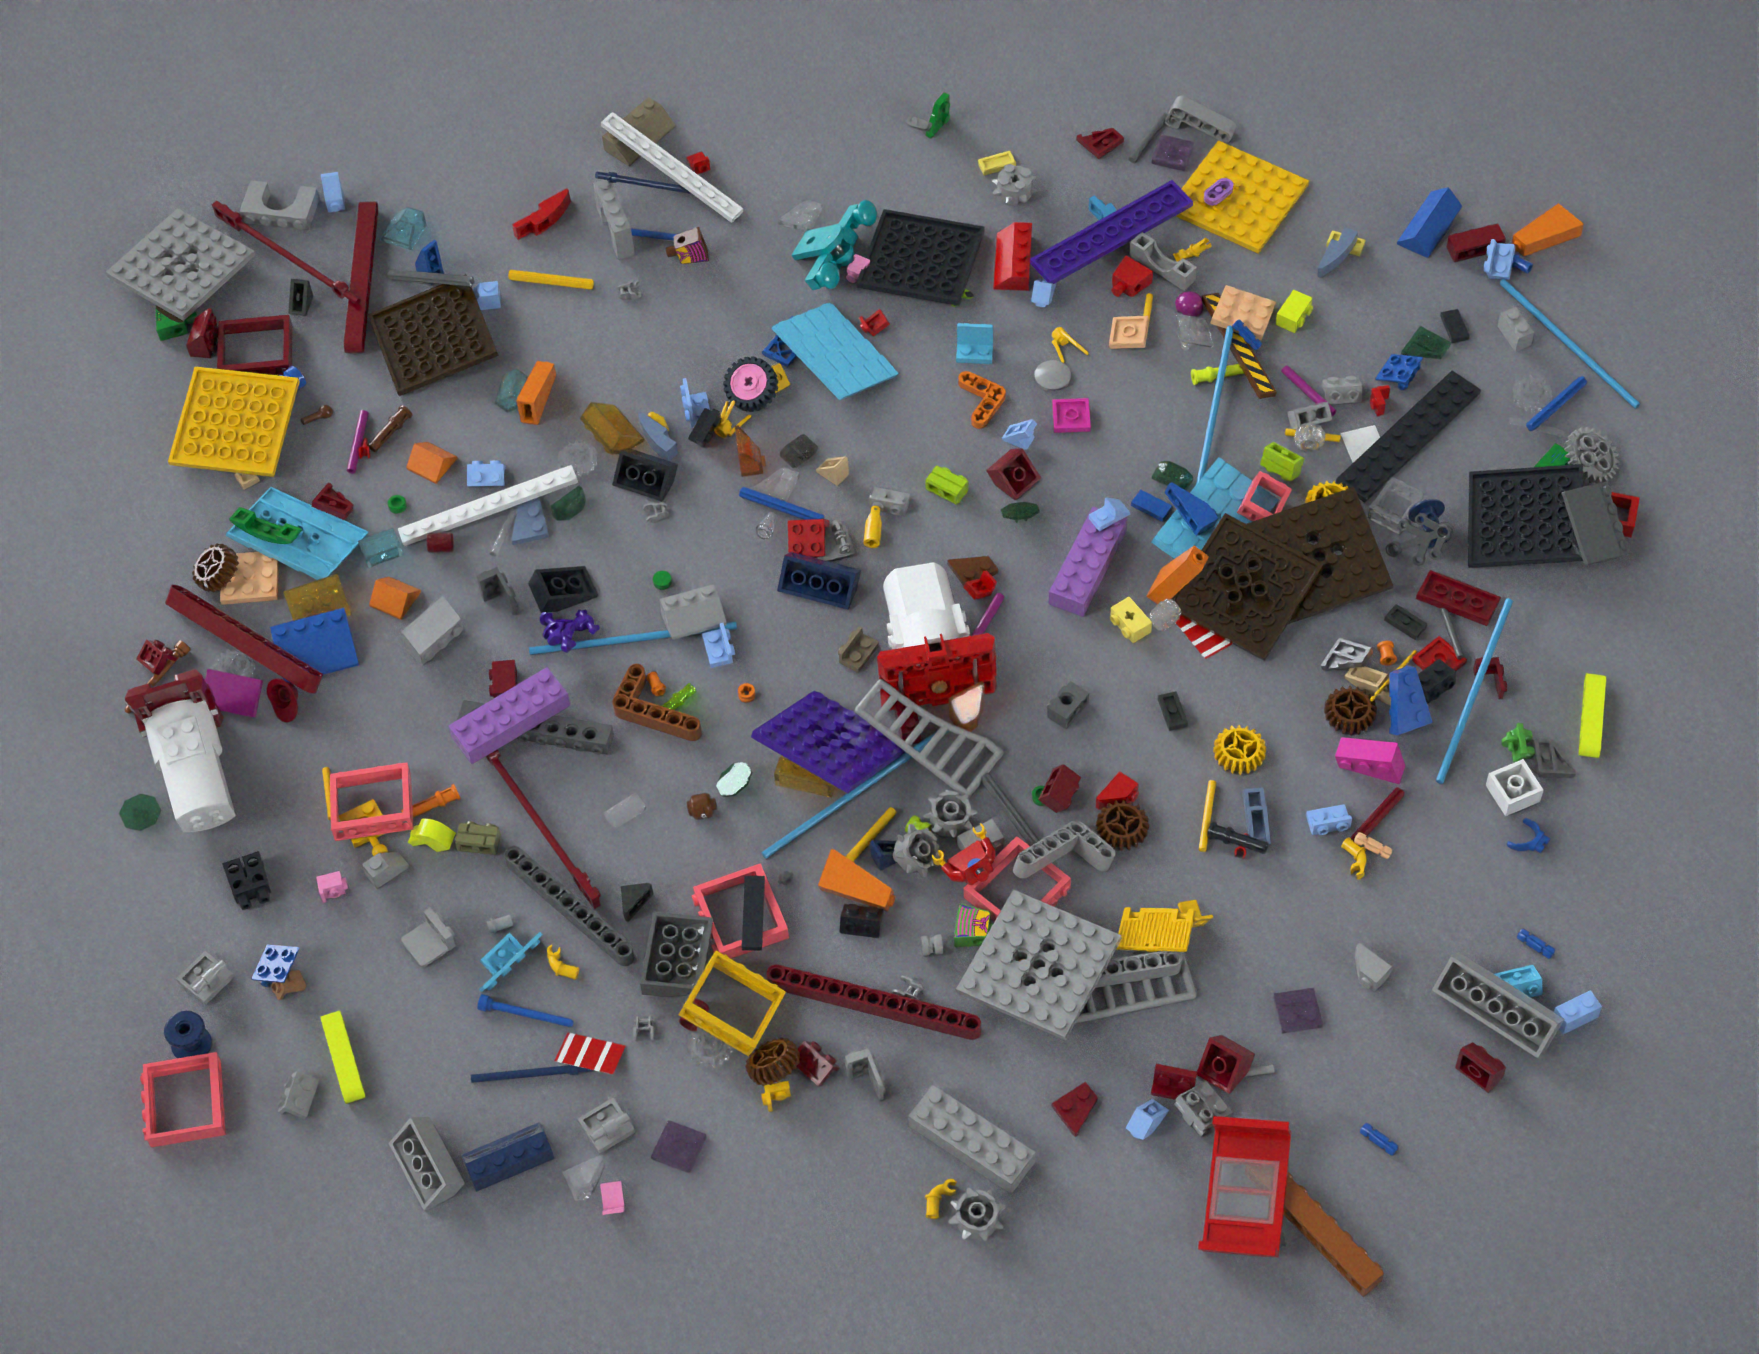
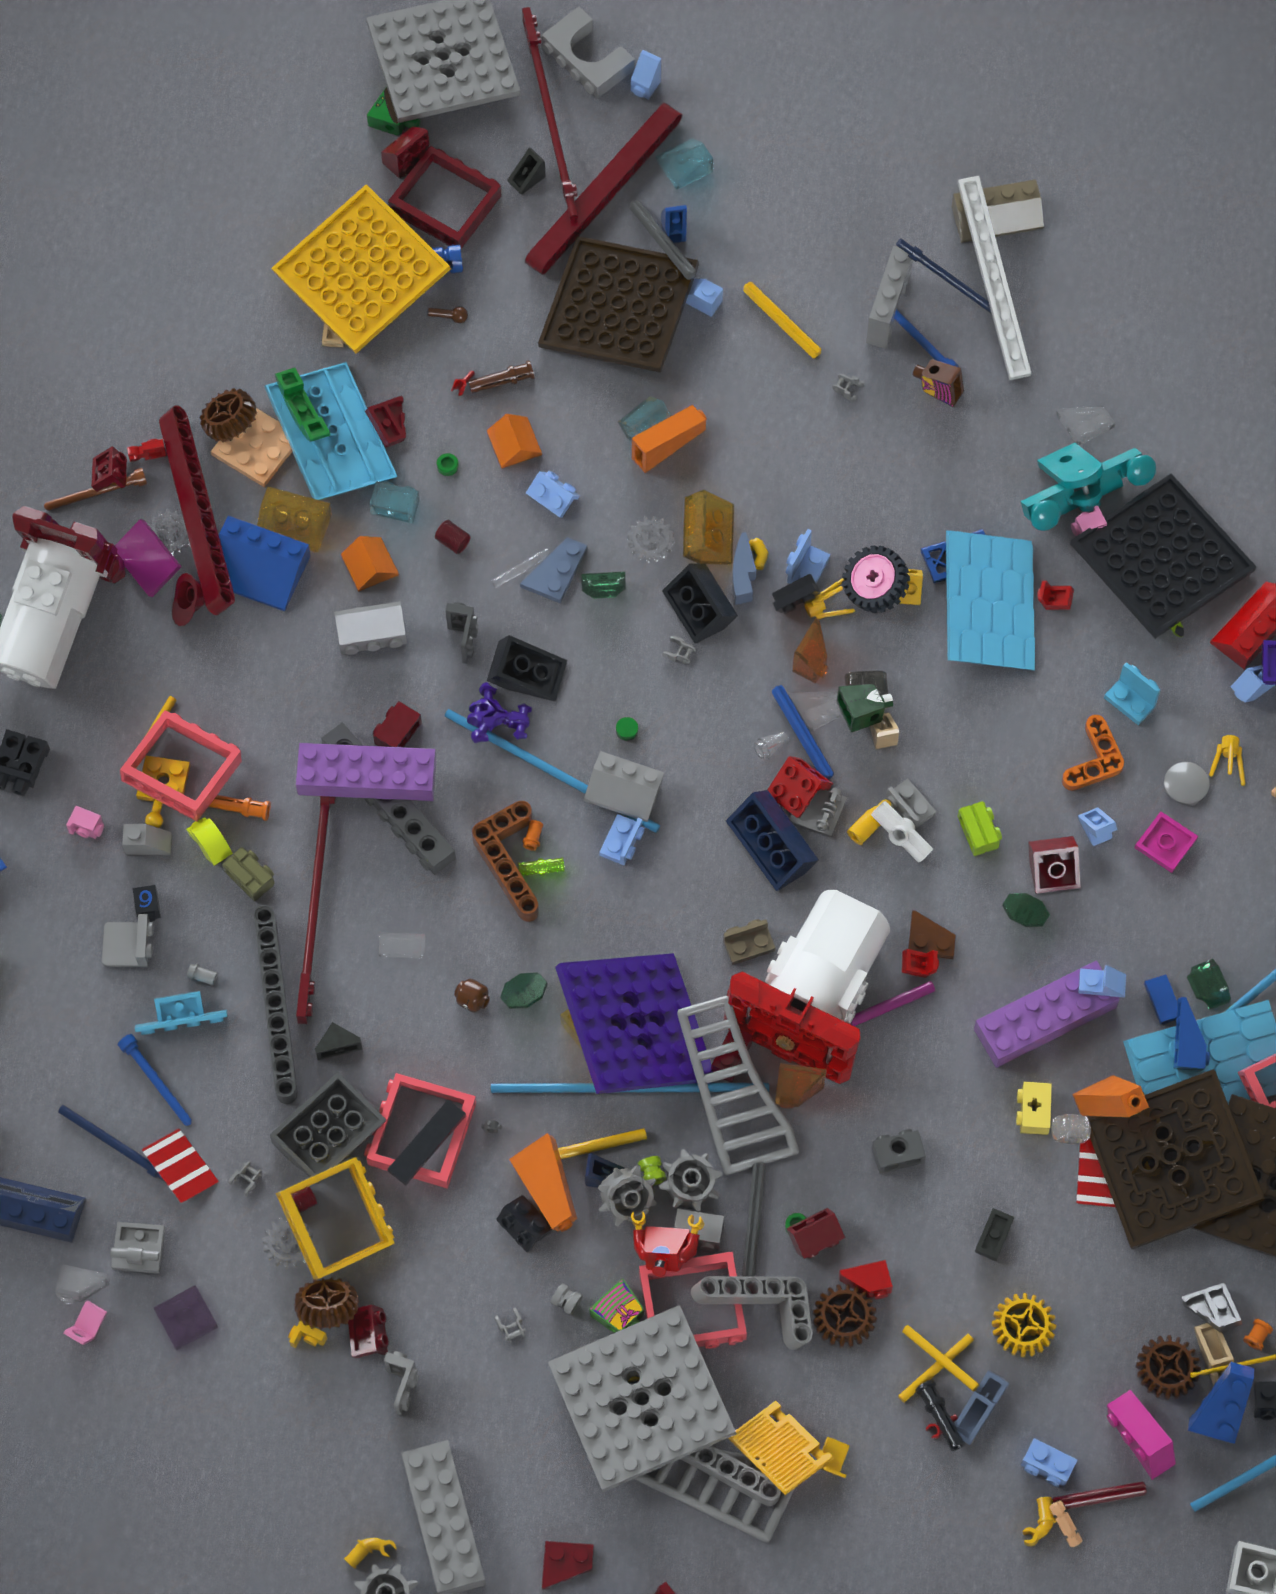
camera: 35 degrees right, 10 degrees up
(175, 627) = (149, 450): none -> red plate
(357, 442) = (462, 370): magenta piece -> none
(417, 903) = (147, 902): none -> black brick
(488, 505) = (527, 529): white plate -> none
(548, 213) = (837, 244): red slope -> none
(559, 967) = (219, 1058): yellow piece -> none
(698, 162) = (1030, 288): red bracket -> none
(746, 687) = (606, 902): orange bush -> none
(808, 460) = (862, 705): none -> dark green torso
(880, 1008) = (472, 1324): dark red beam -> none
(889, 514) = (910, 839): none -> white piece
(1206, 805) = (940, 1358): none -> yellow bar

